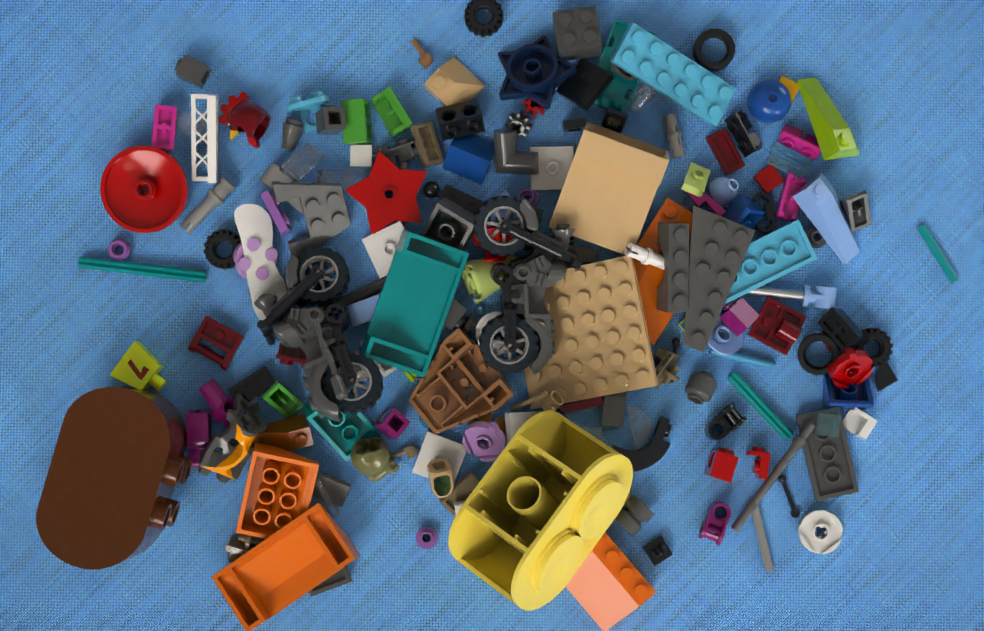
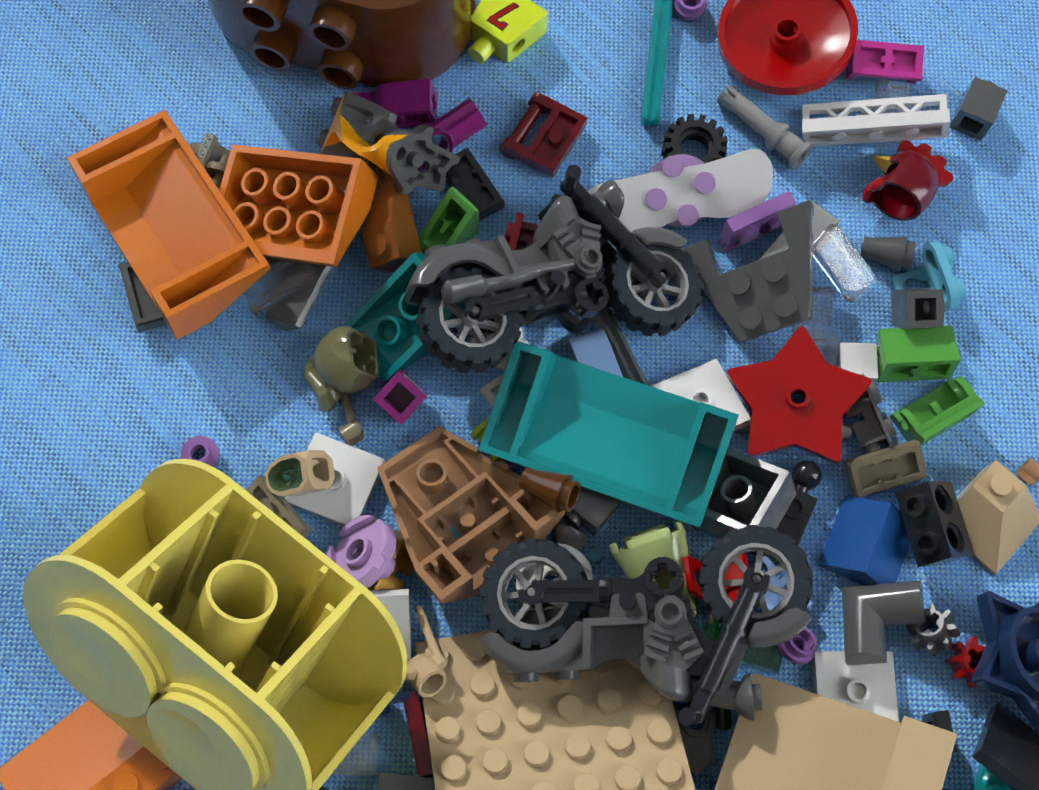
camera: 90 degrees right, 15 degrees down
(448, 335) = (552, 488): none -> reddish brown cone

